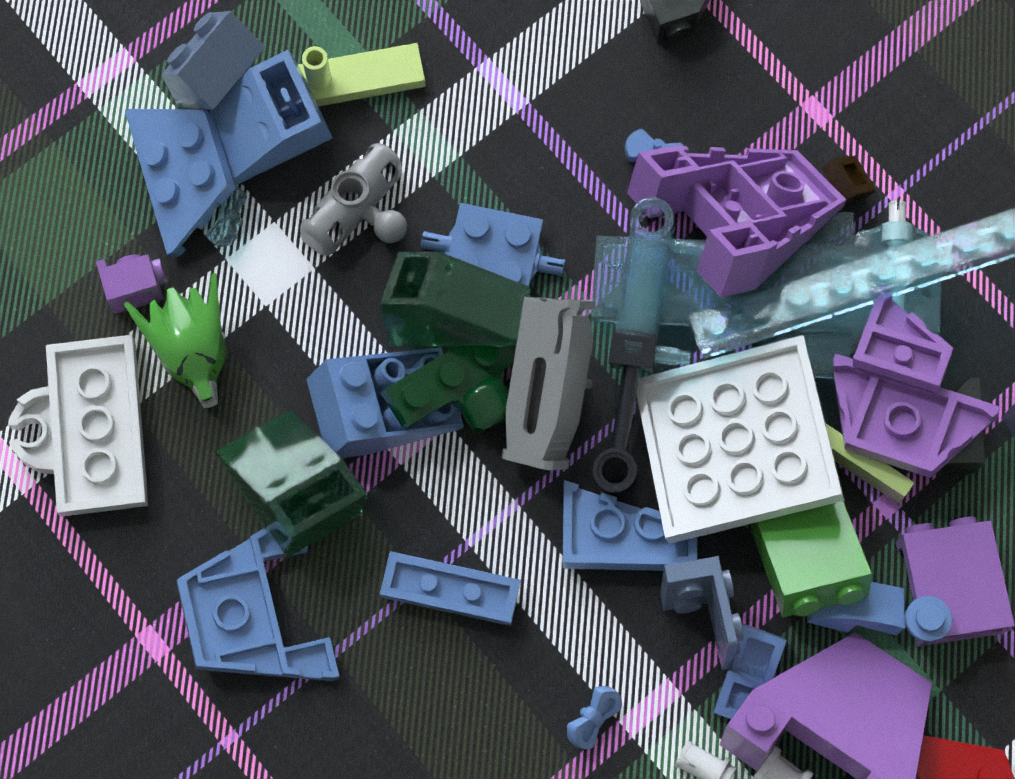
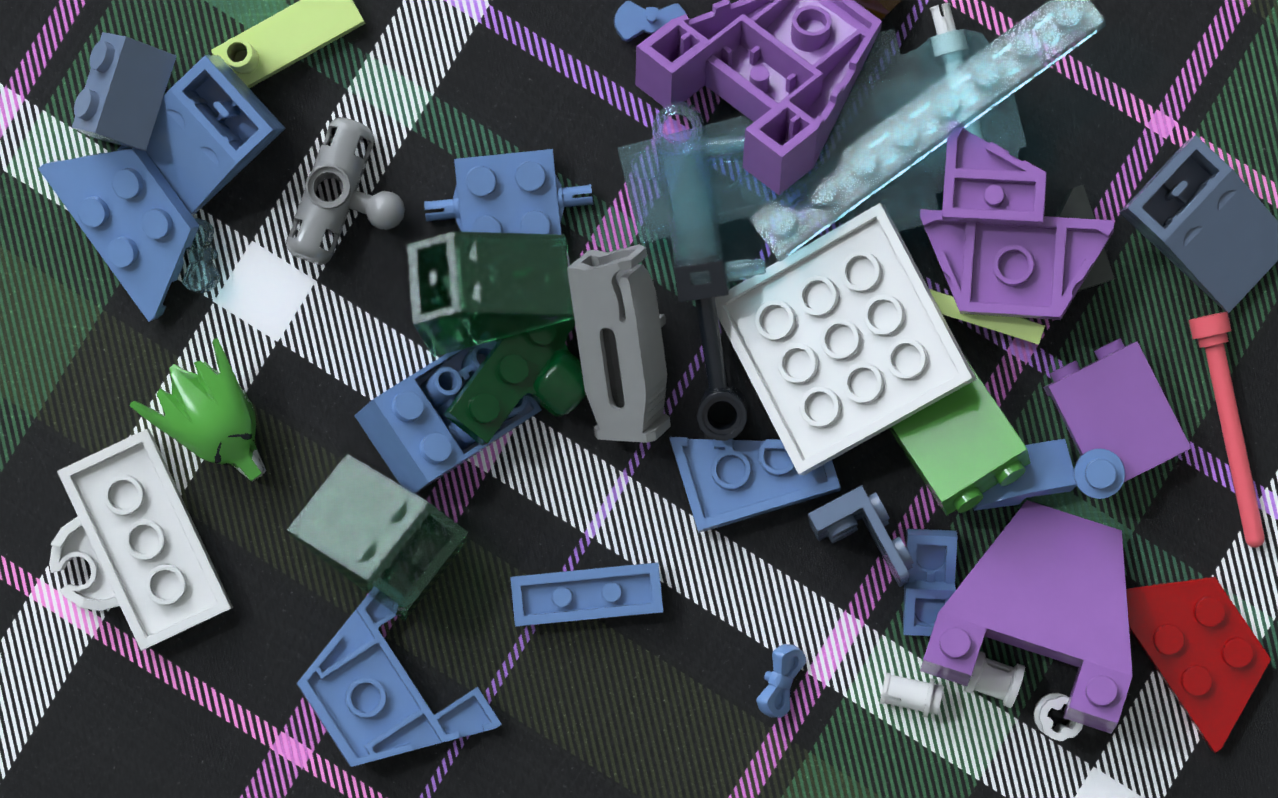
camera: 15 degrees left, 15 degrees up
(132, 280) = (123, 367): medium lavender brick -> none

